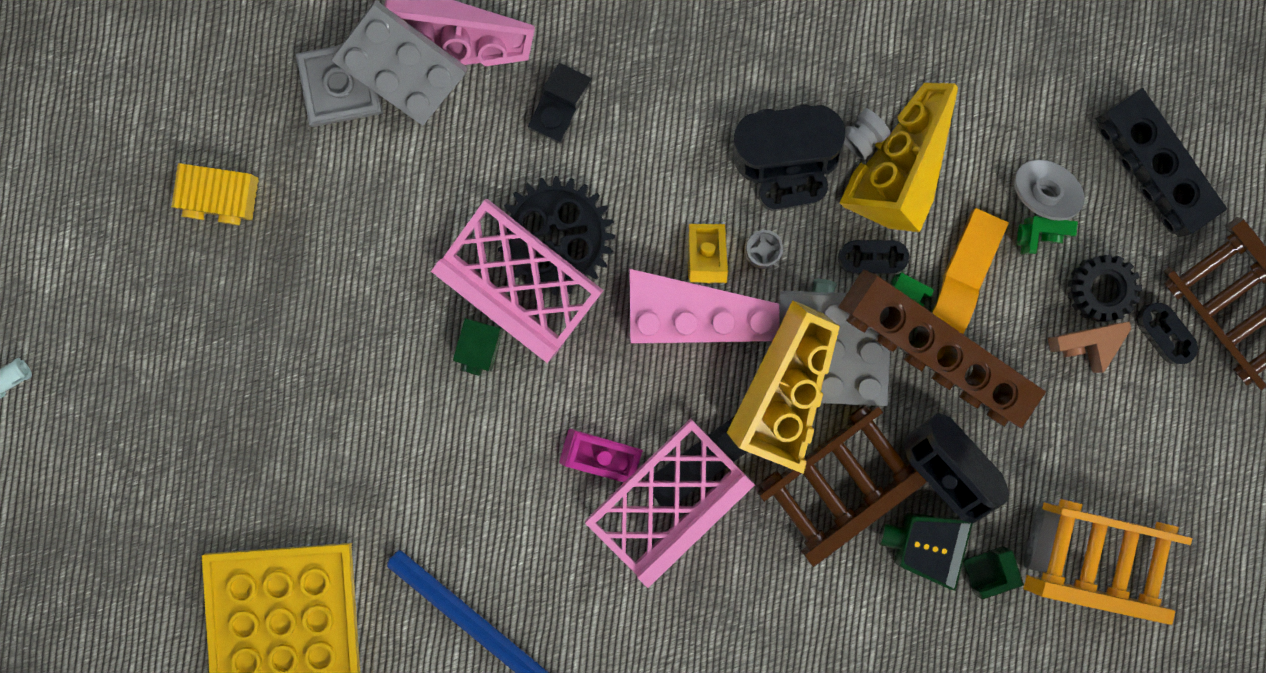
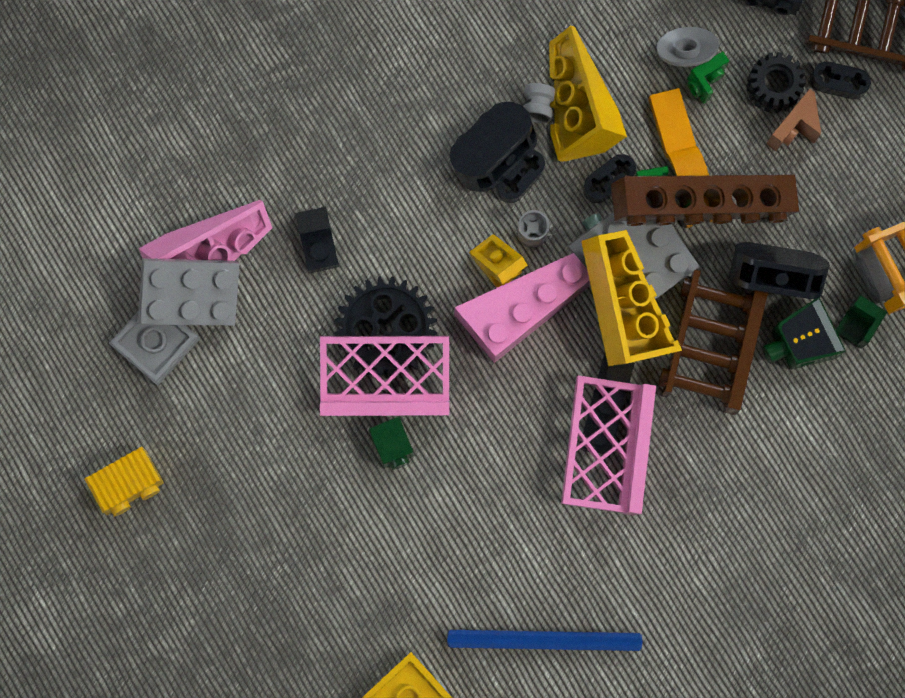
camera: 40 degrees left, 10 degrees down
(599, 456) = (534, 454): dark pink slope -> none

